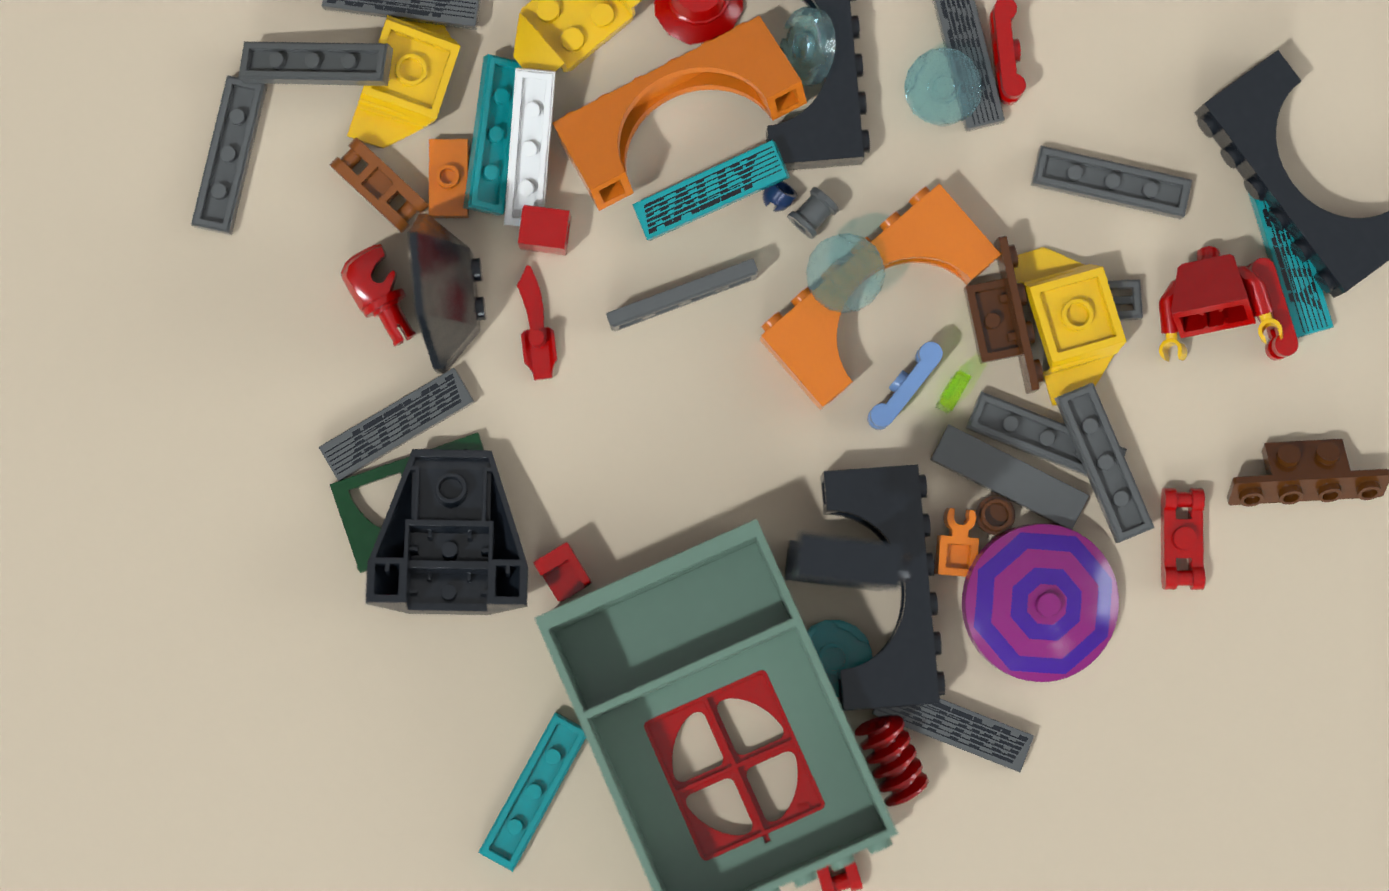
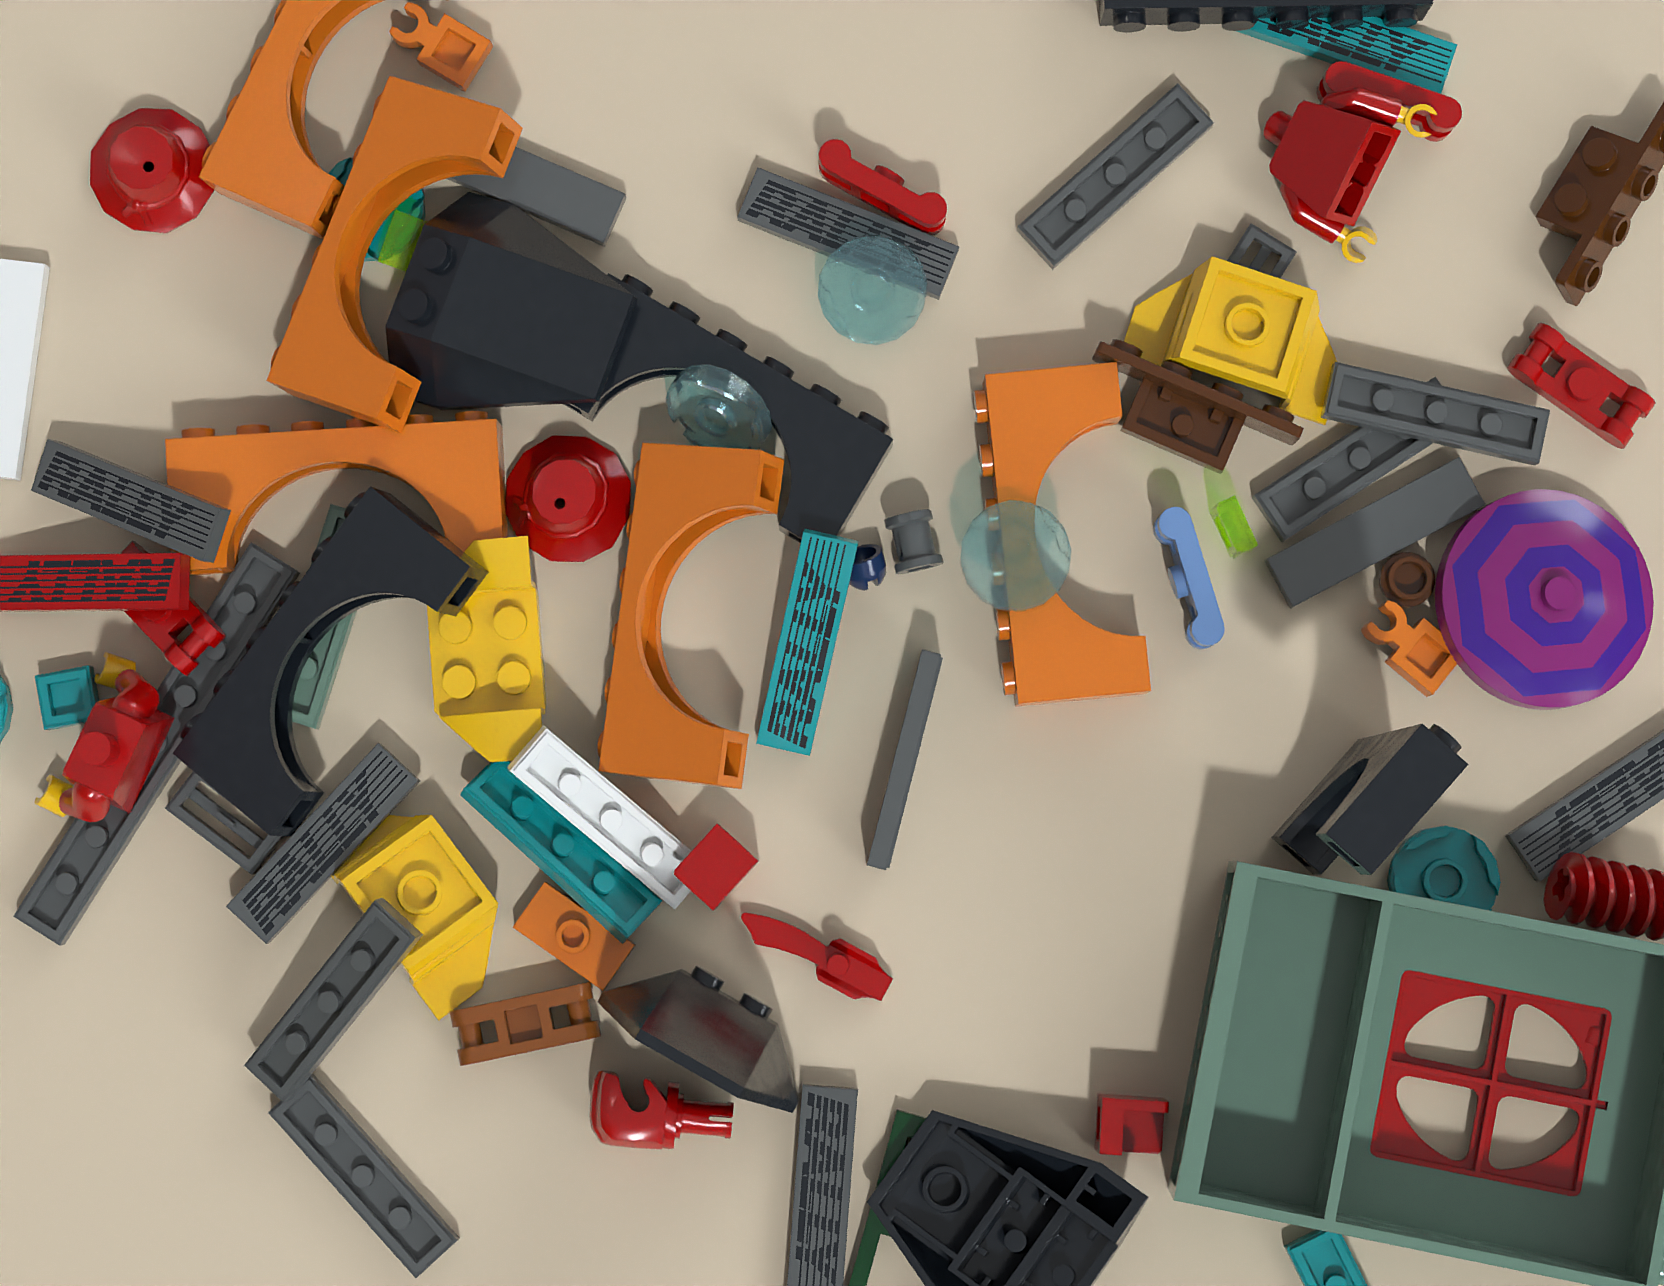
camera: 50 degrees left, 0 degrees up
(891, 507) = (1514, 806): black arch -> none

